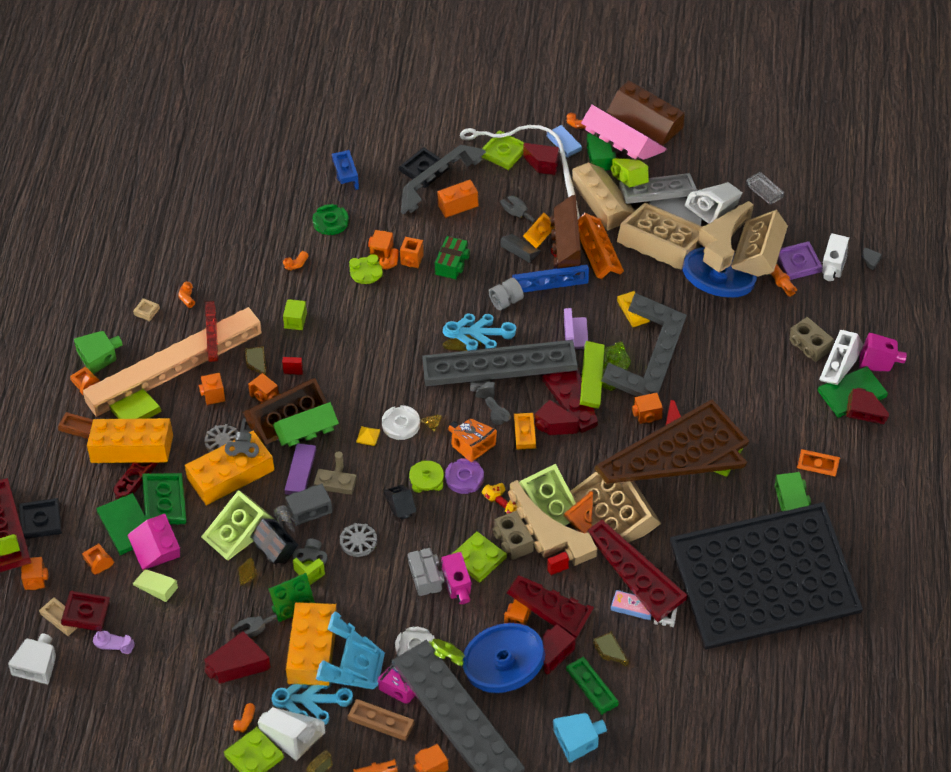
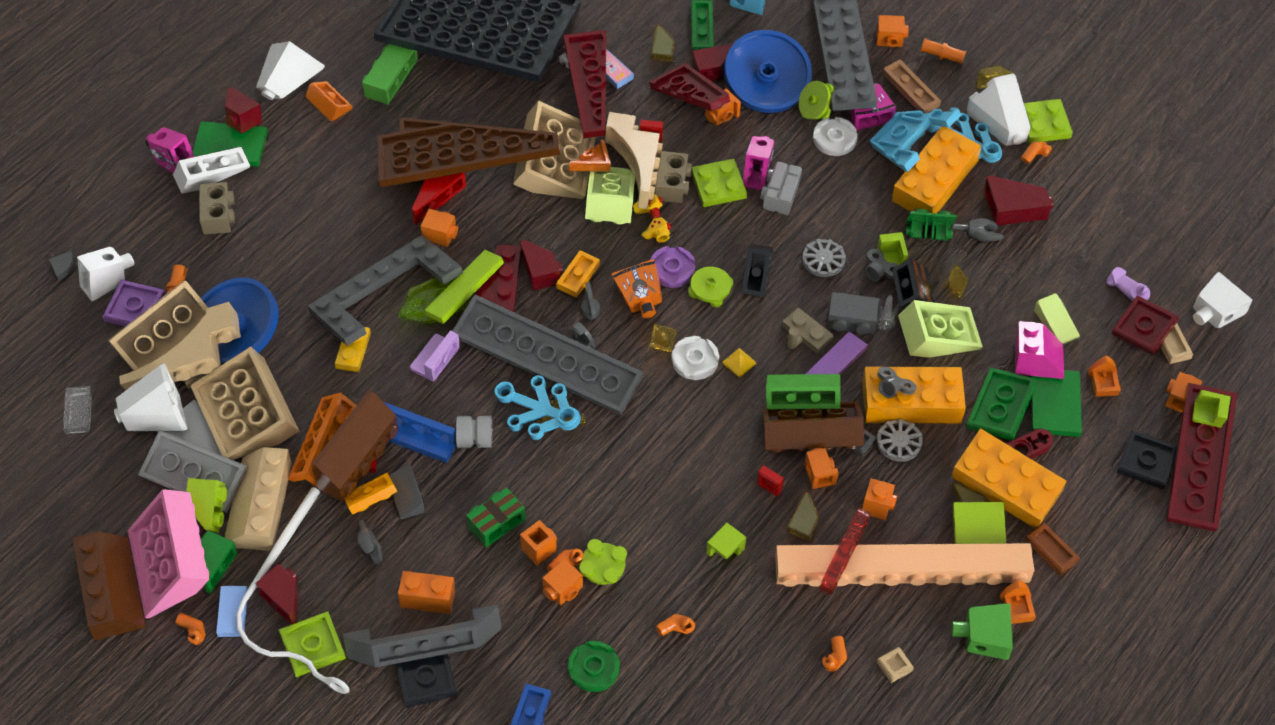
camera: 150 degrees left, 5 degrees up
(866, 457) = (286, 70): none -> white slope

